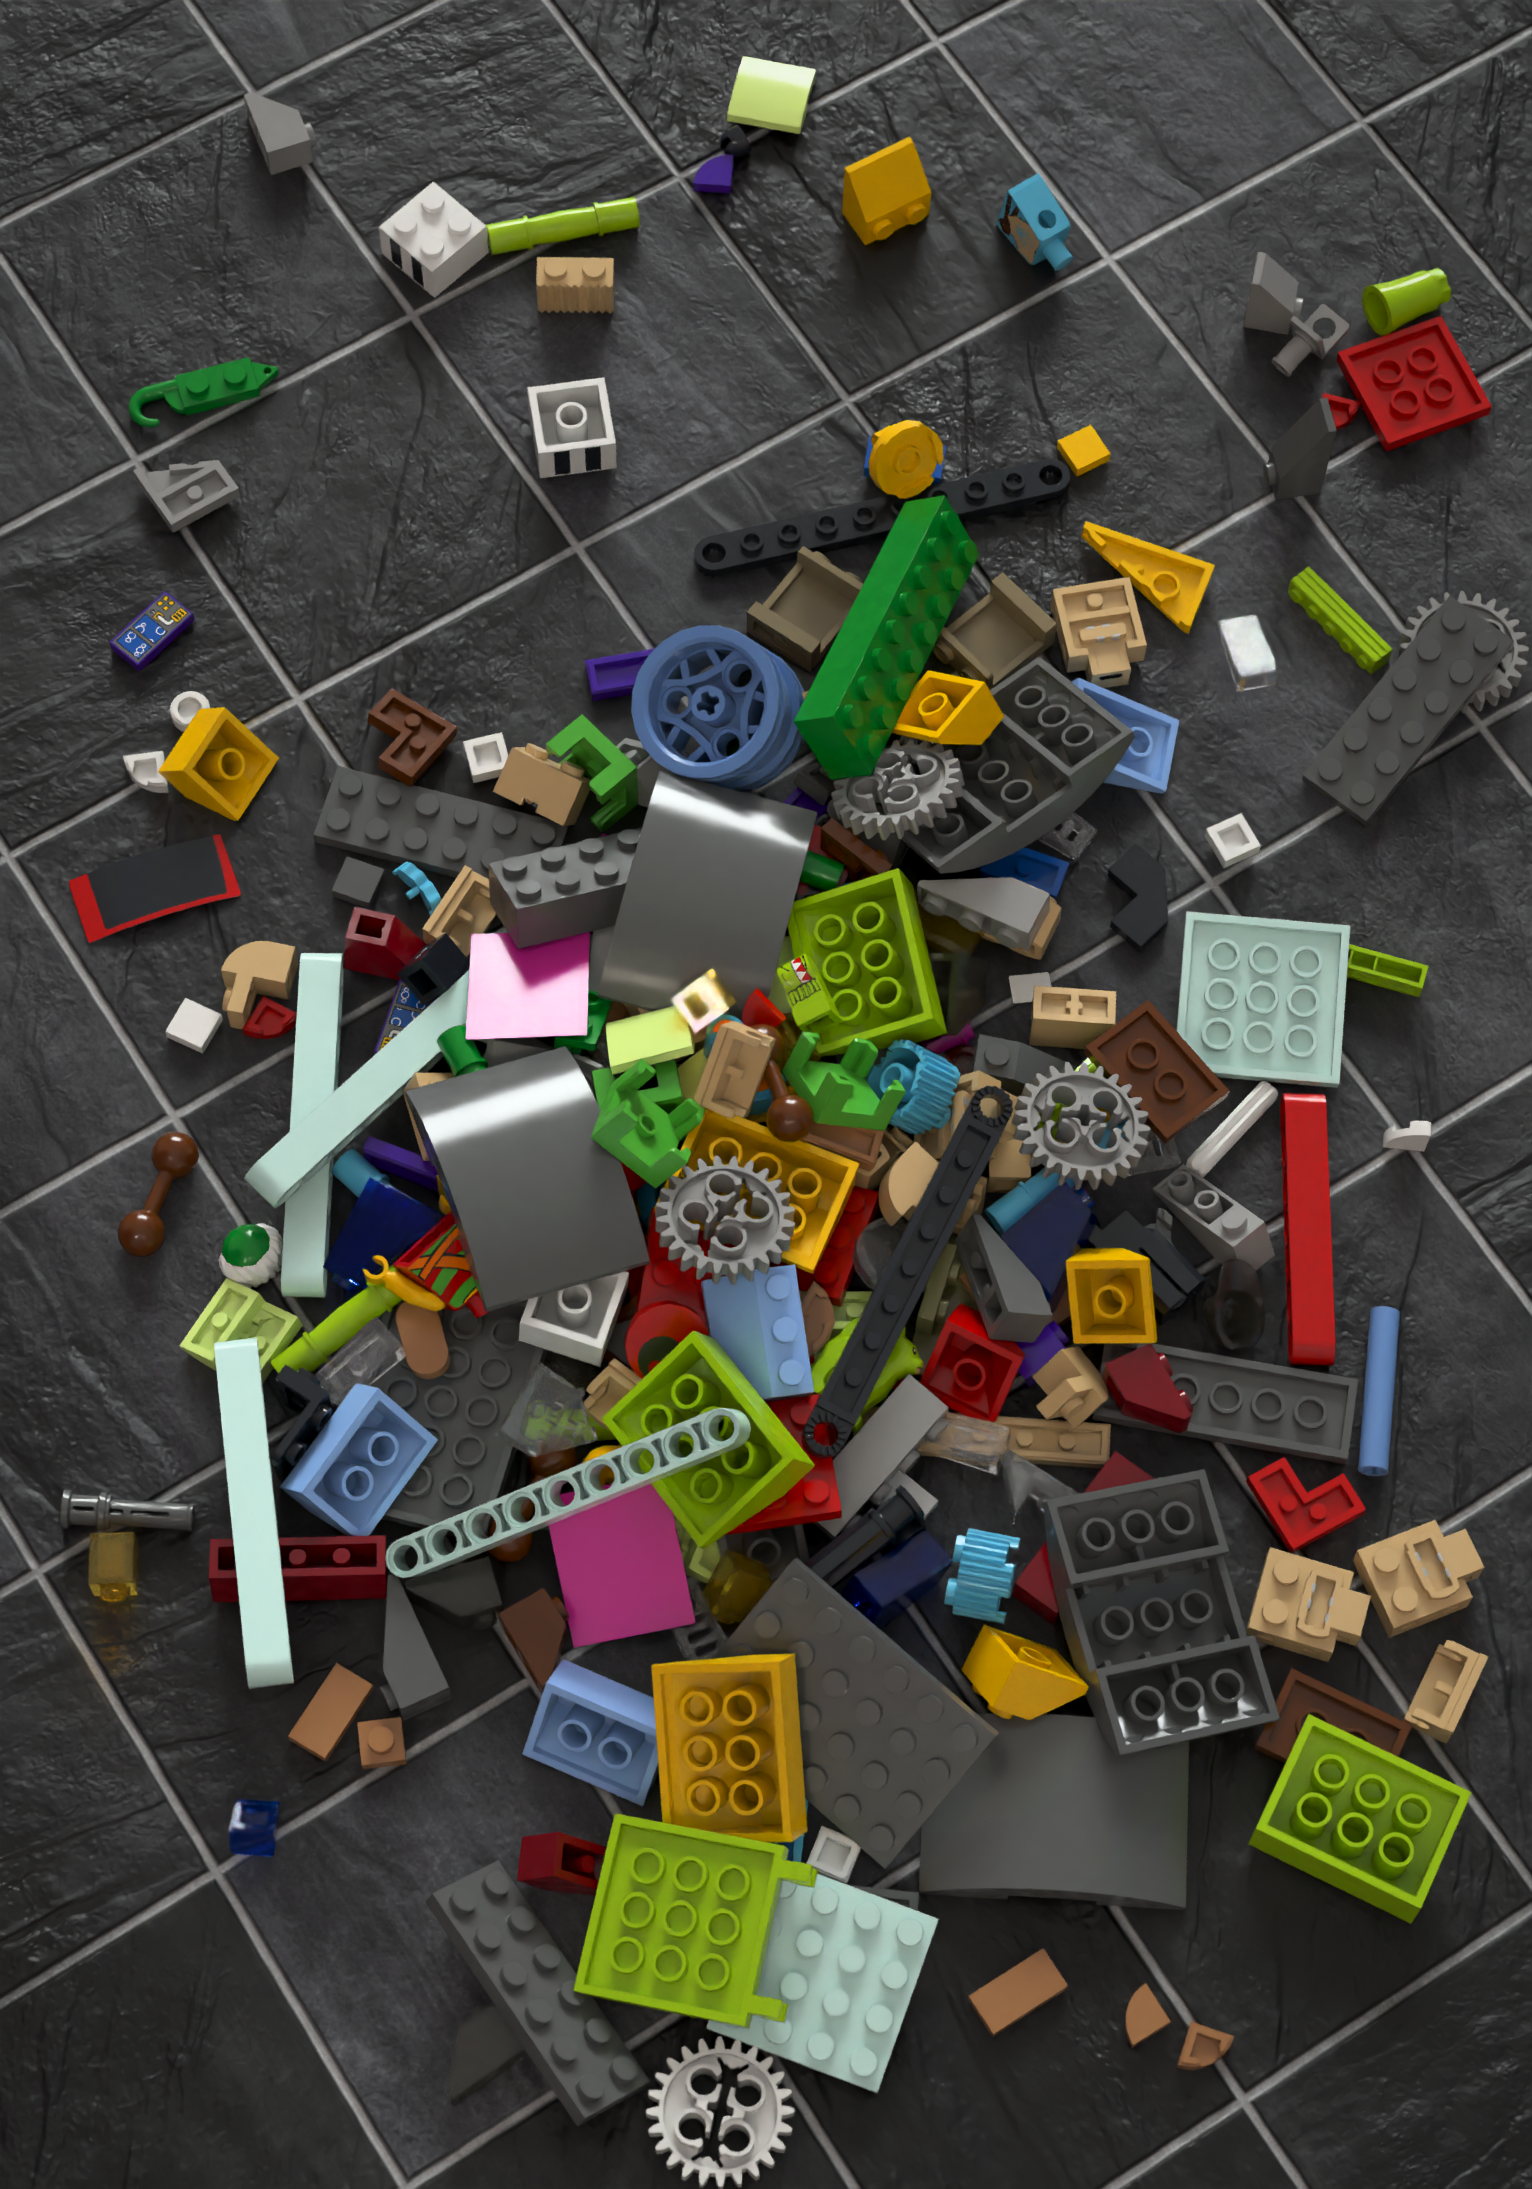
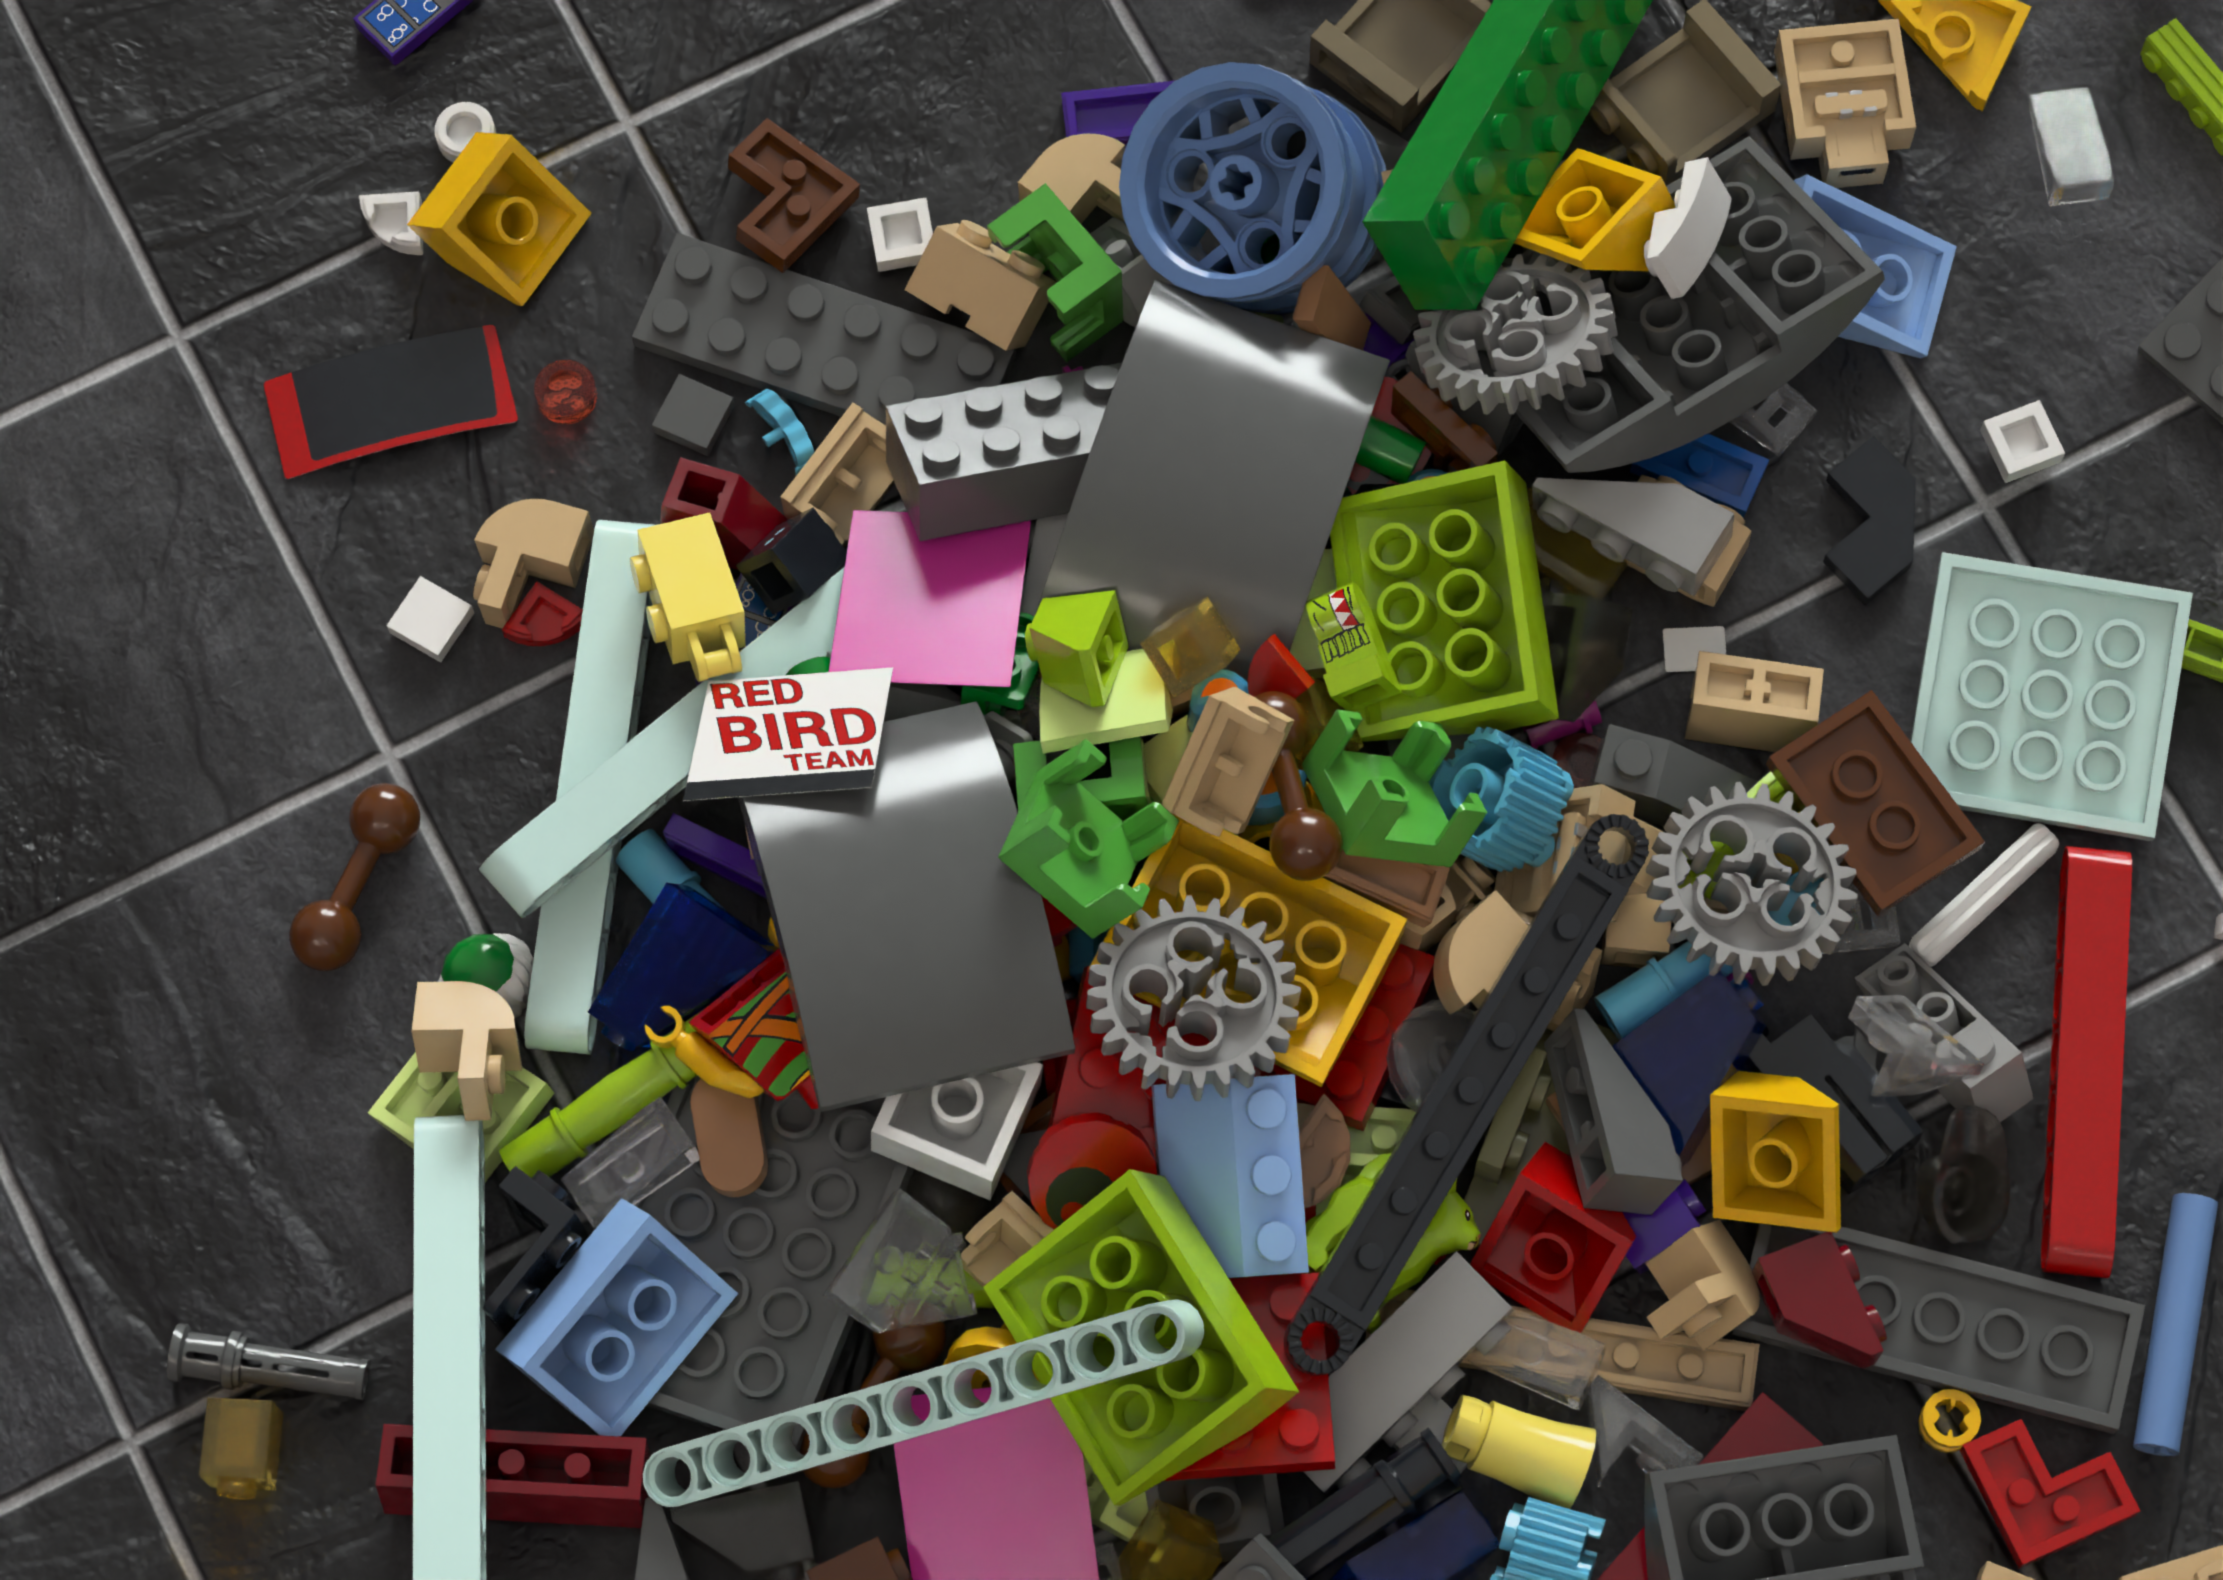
camera: 10 degrees right, 5 degrees up
(244, 1285) = (466, 1032): none -> tan brick
(271, 873) = (565, 392): none -> clear red tile
(369, 993) = (691, 595): none -> light yellow brick
(444, 1073) = (789, 734): none -> sticker
(606, 708) = (1081, 173): none -> tan brick
(629, 1004) = (1079, 644): none -> lime slope
(774, 783) = (1330, 311): none -> medium nougat tile
(961, 1499) = (1520, 1449): none -> light yellow plant
(1006, 716) = (1689, 233): none -> white slope
(1196, 1225) = (1917, 1048): none -> clear slope
(1237, 1449) = (1930, 1415): none -> yellow bush

